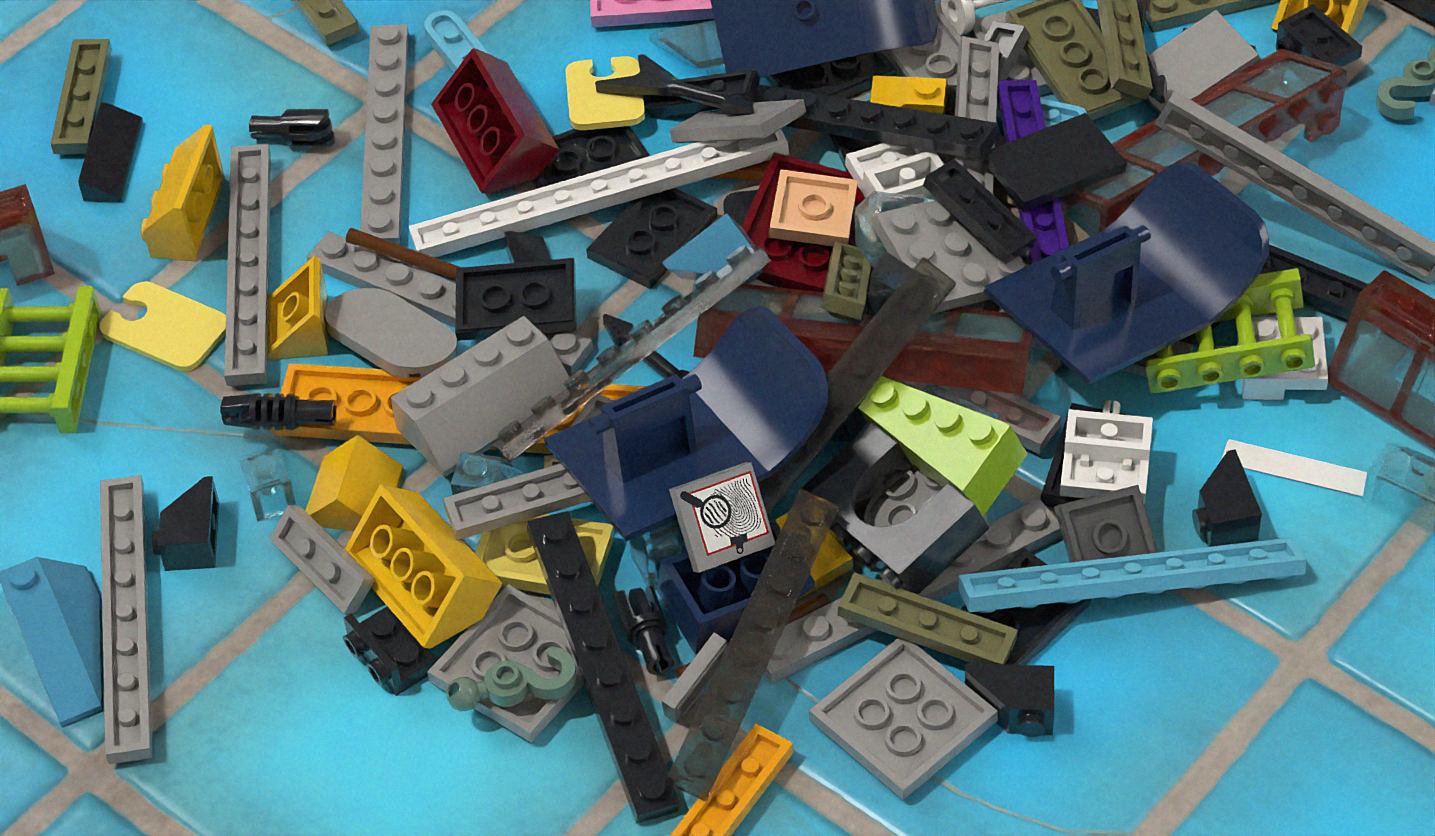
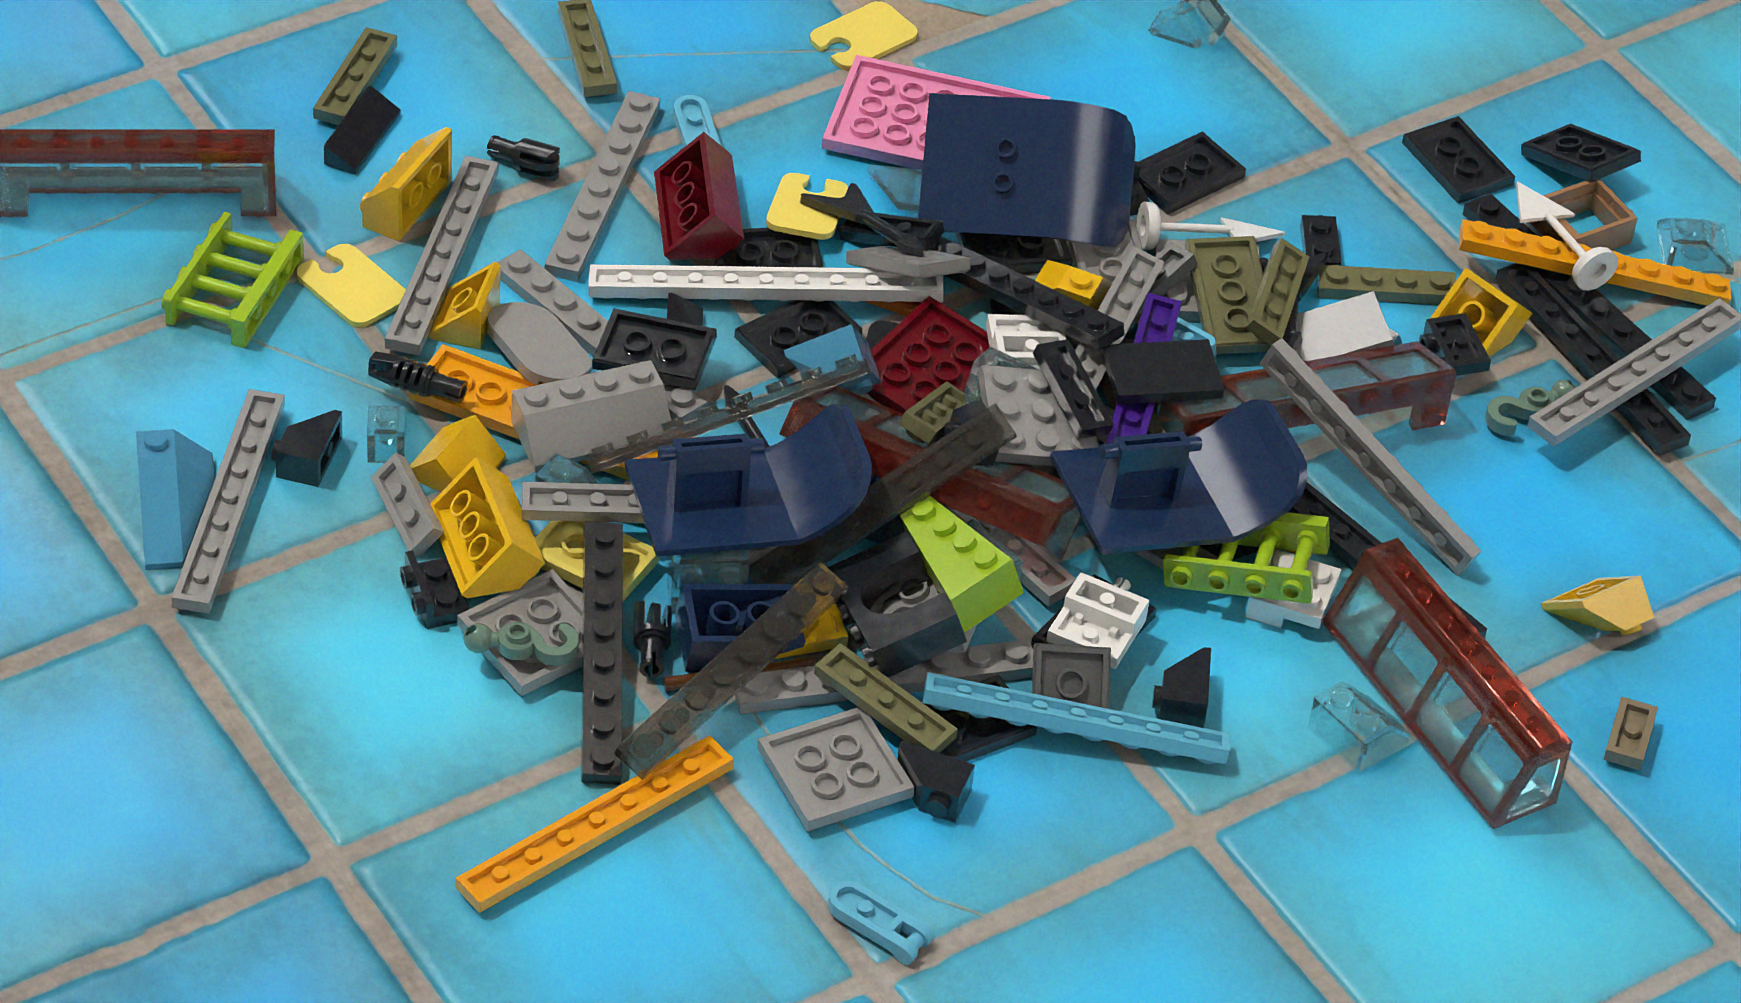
camera: 10 degrees right, 5 degrees down
(402, 254) = (572, 283): reddish brown bar -> none
(694, 679) = (661, 690): light grey tile -> none
(722, 517) = (744, 562): tile -> none
(813, 208) = (939, 349): light nougat plate -> none
(1299, 468) = (1261, 682): white sticker -> none

